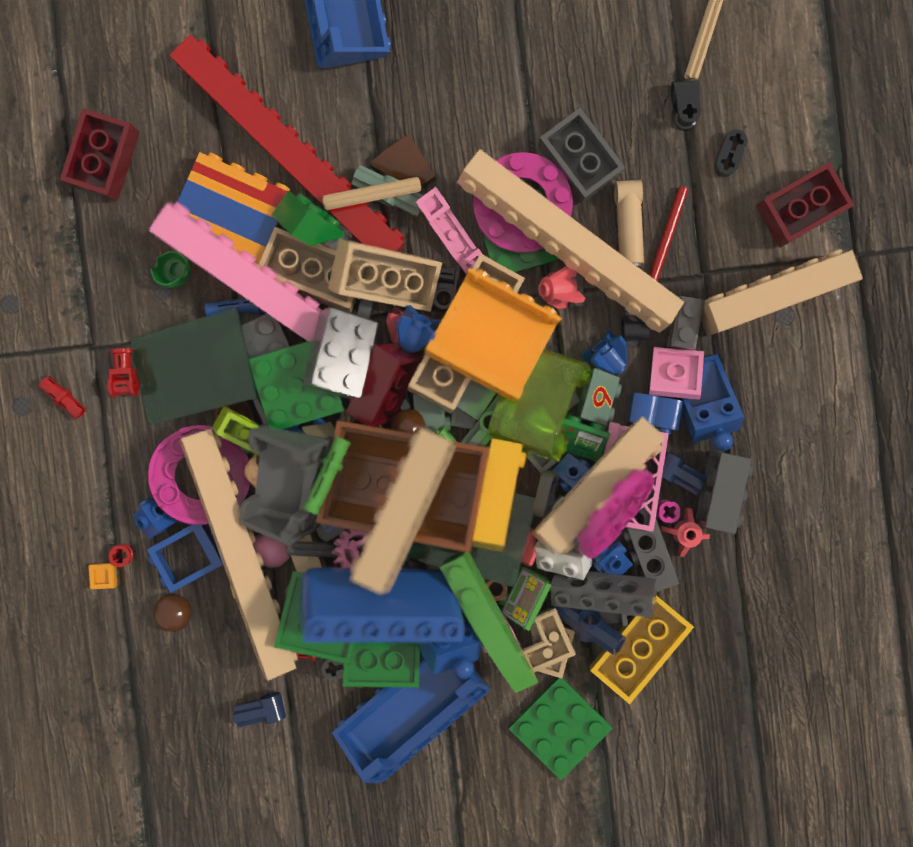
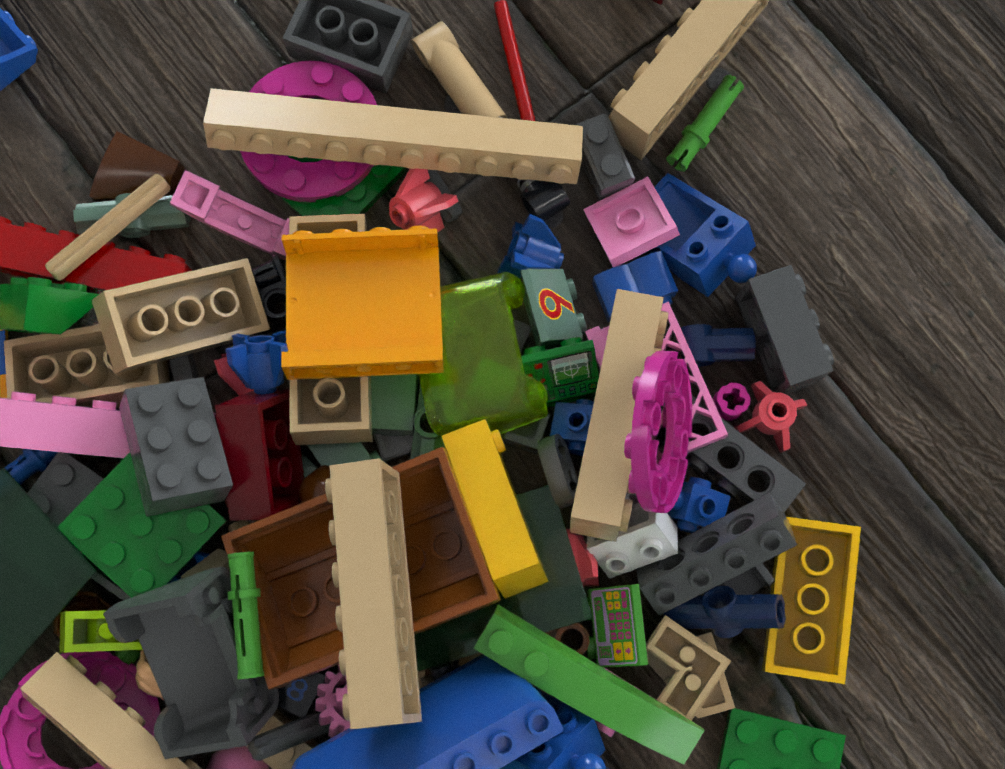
camera: 30 degrees left, 10 degrees down
(749, 342) = (697, 135): none -> bright green pin

